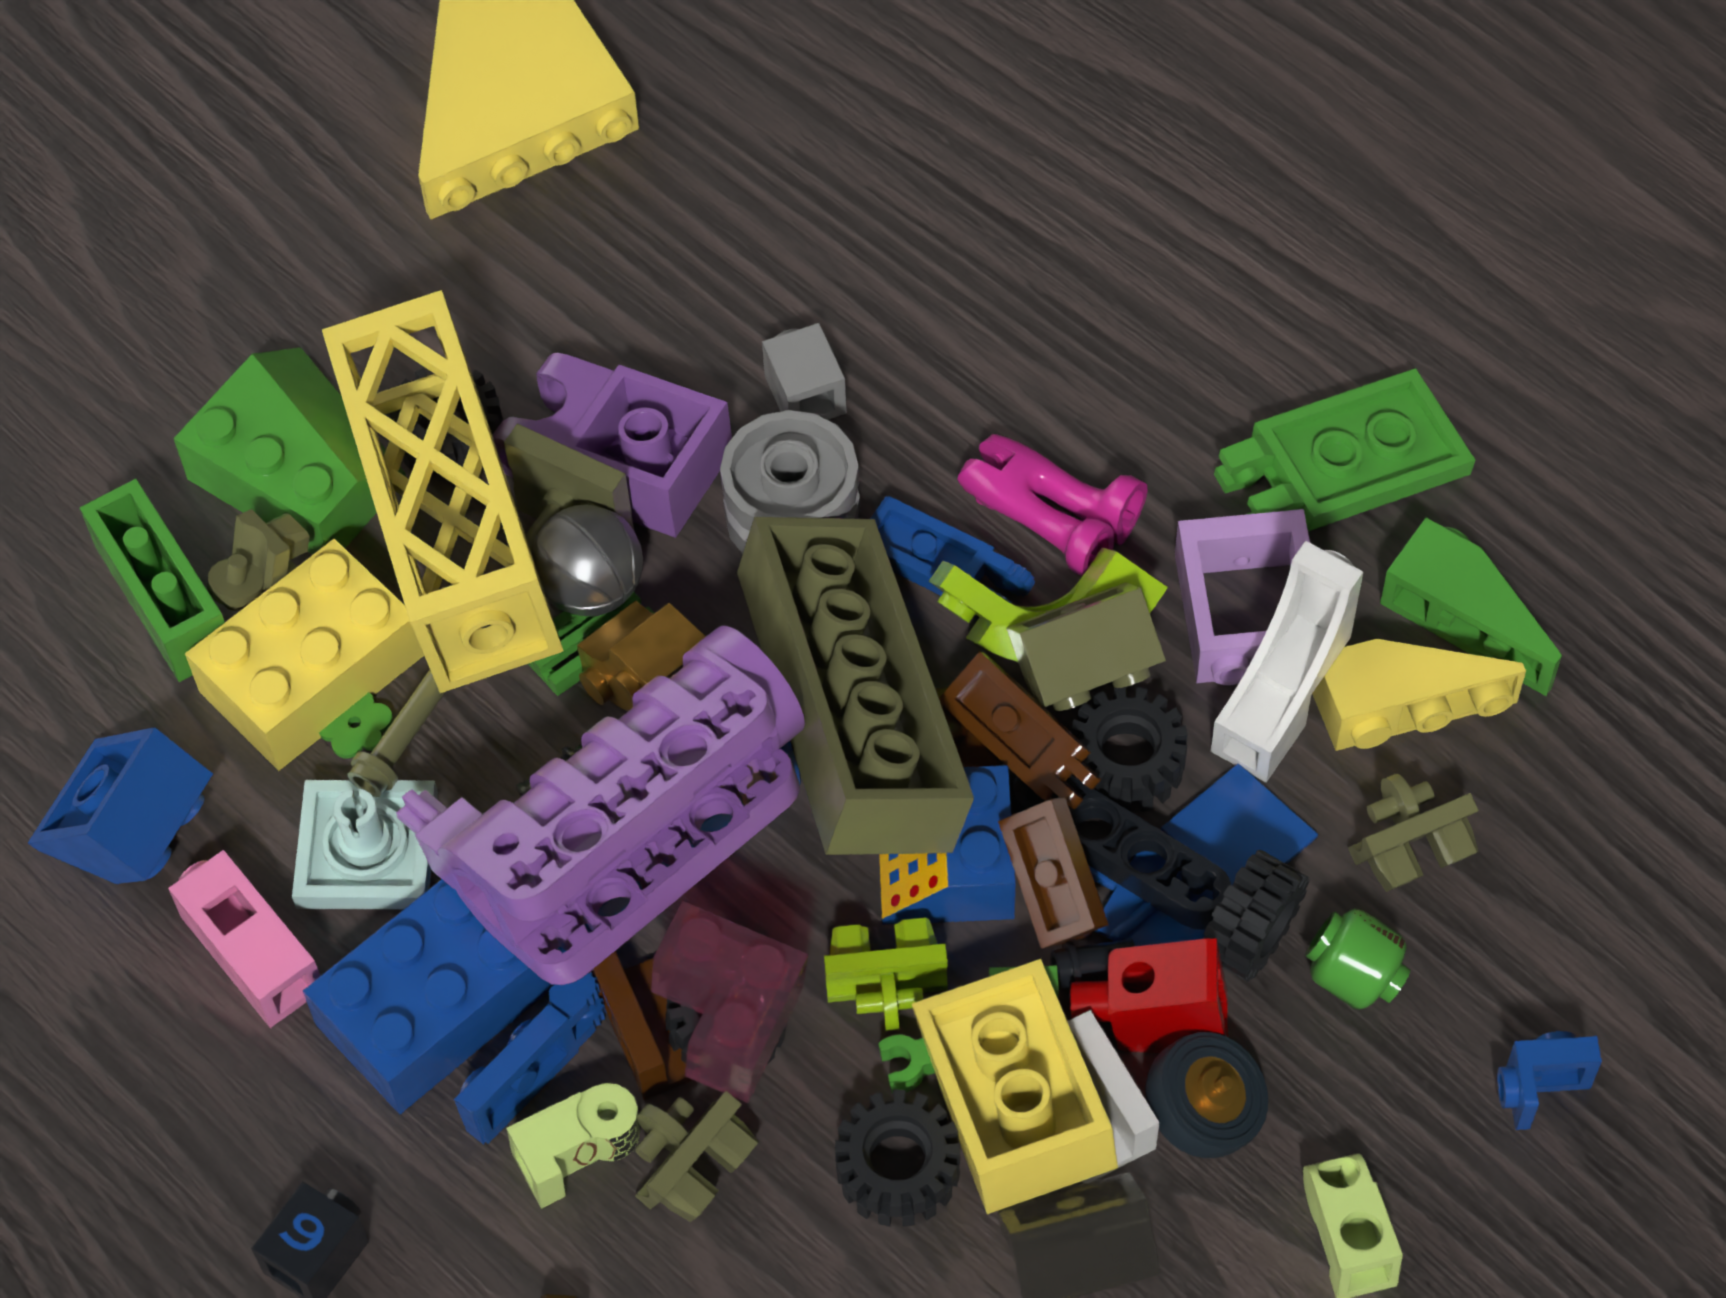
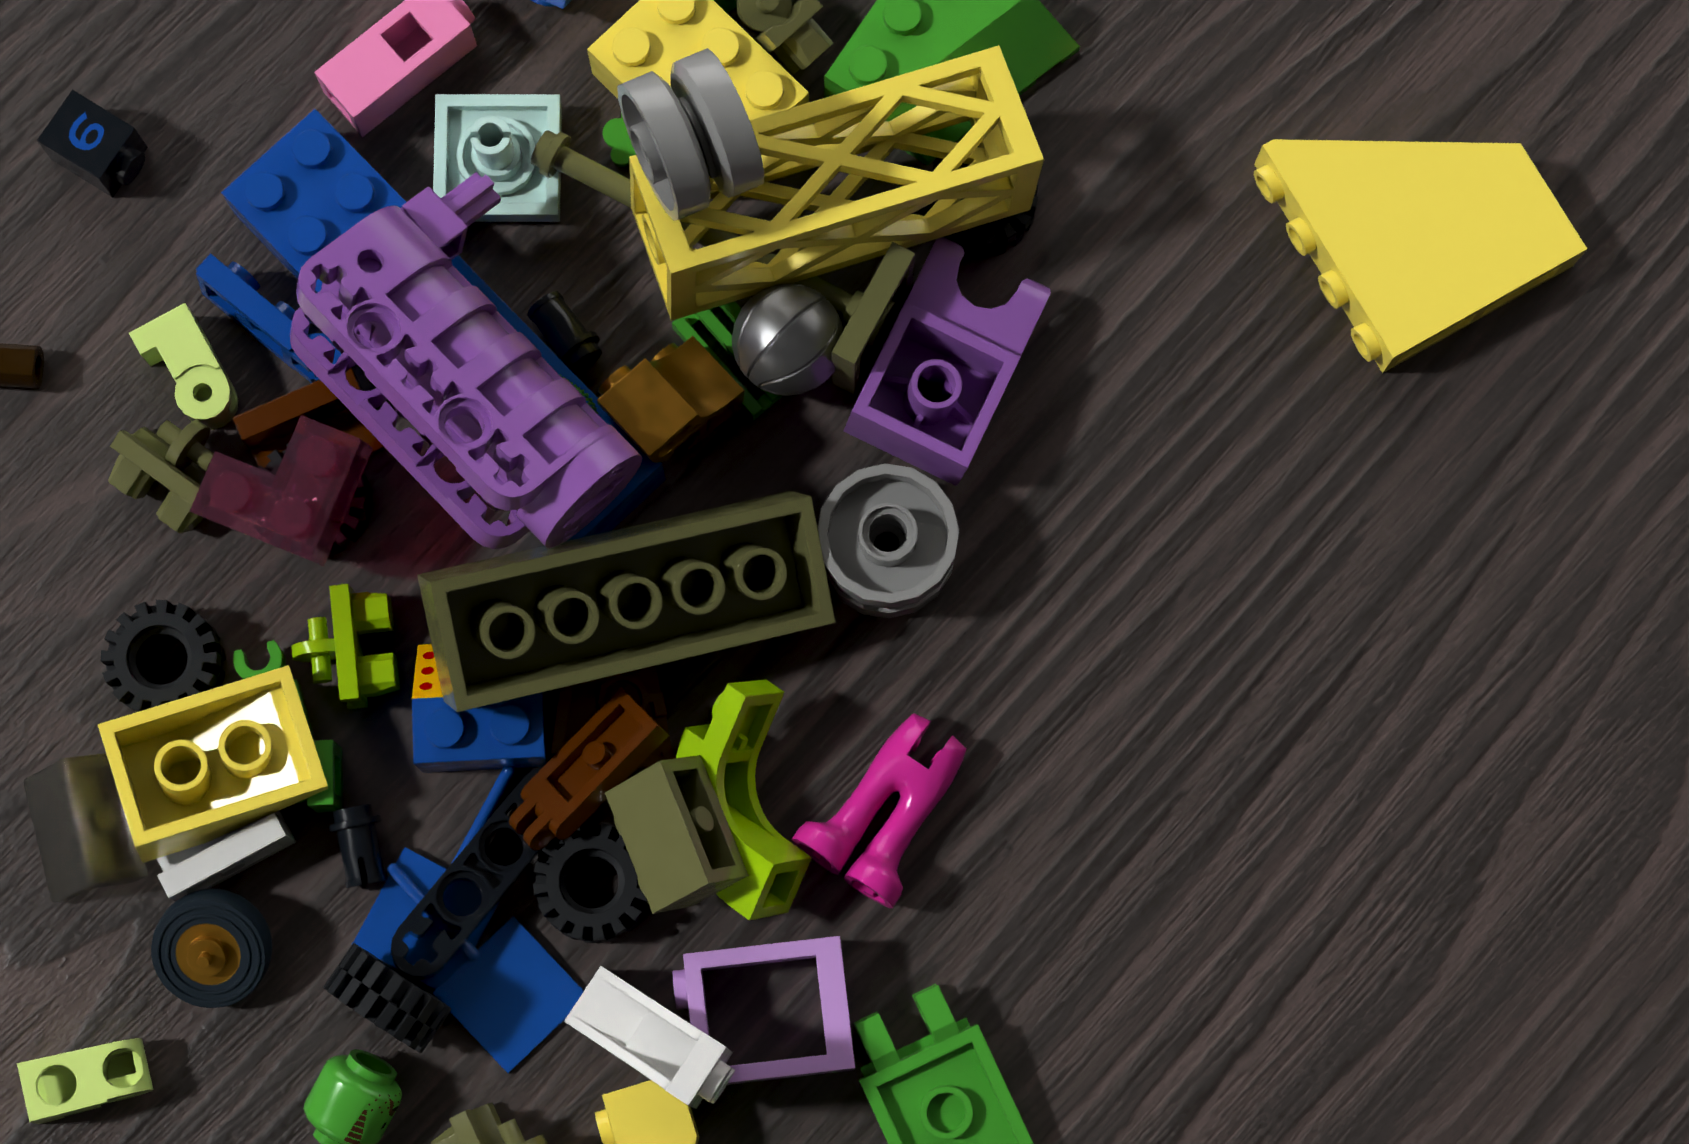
camera: 85 degrees right, 20 degrees up
(405, 528) = (691, 134): none -> light grey wheel
(804, 372) = (1040, 552): light grey brick -> none
(920, 543) = (821, 693): blue hinge -> none
(1053, 873) = (427, 800): reddish brown panel -> none
(1158, 994) = (304, 928): red torso -> none

